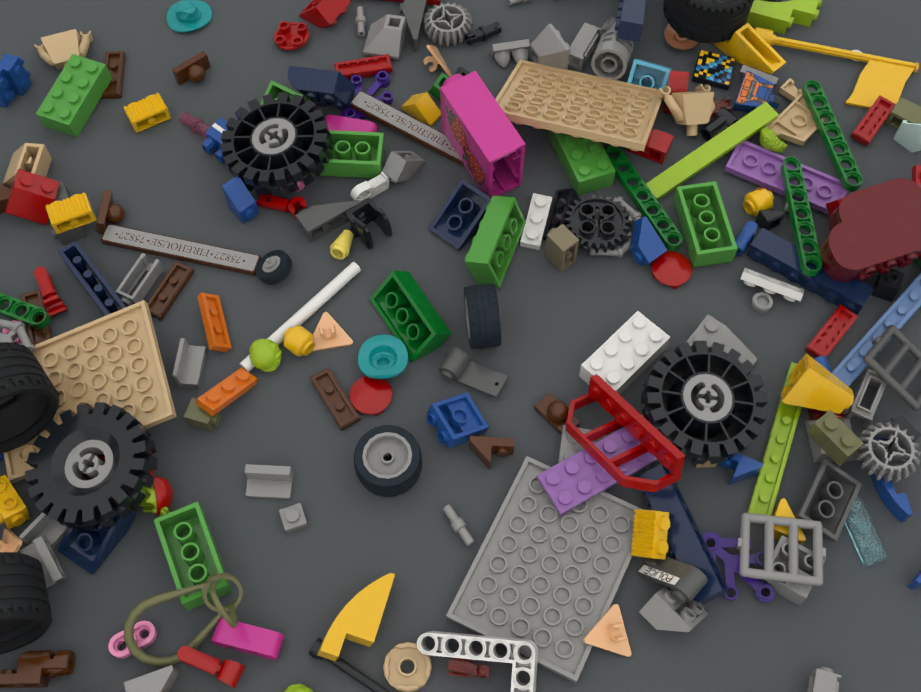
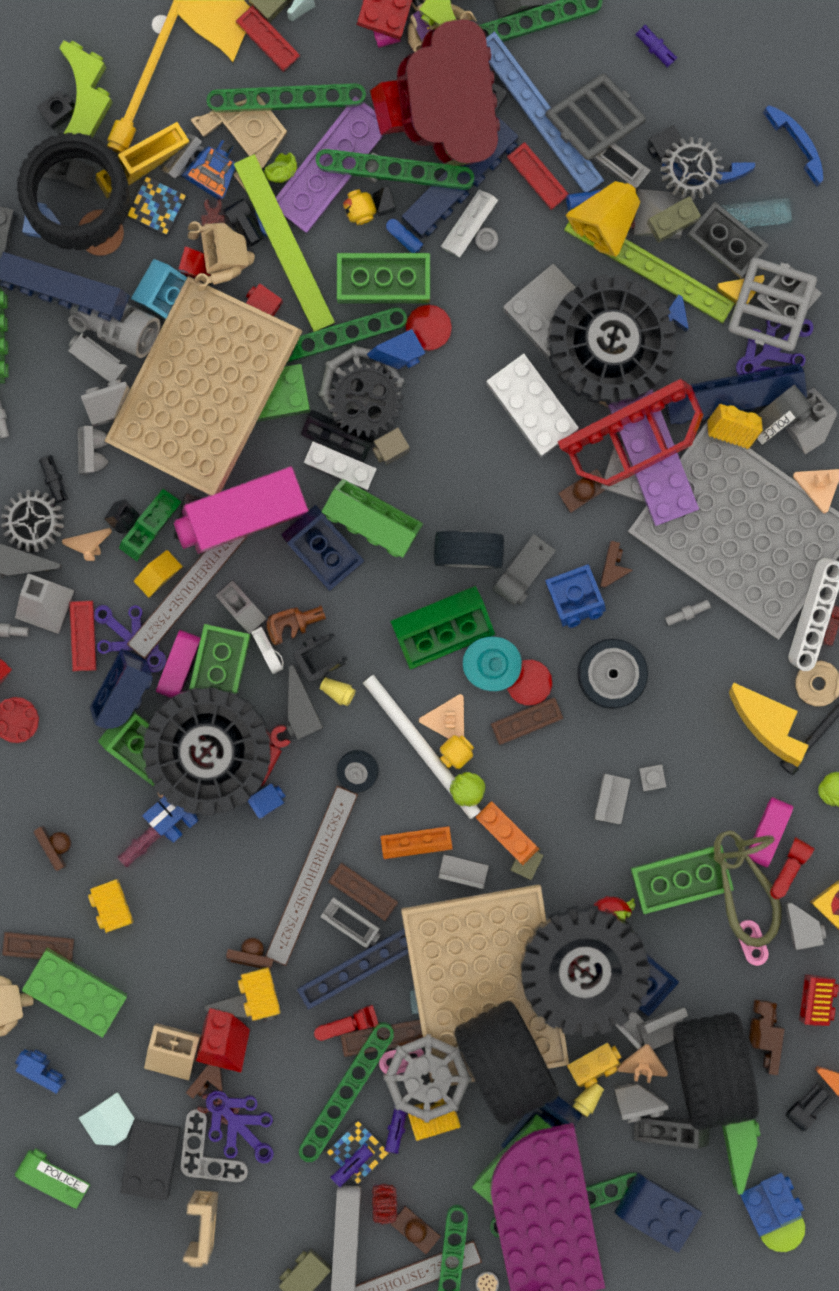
camera: 80 degrees left, 25 degrees up
(395, 200) = (294, 619): none -> dark orange piece

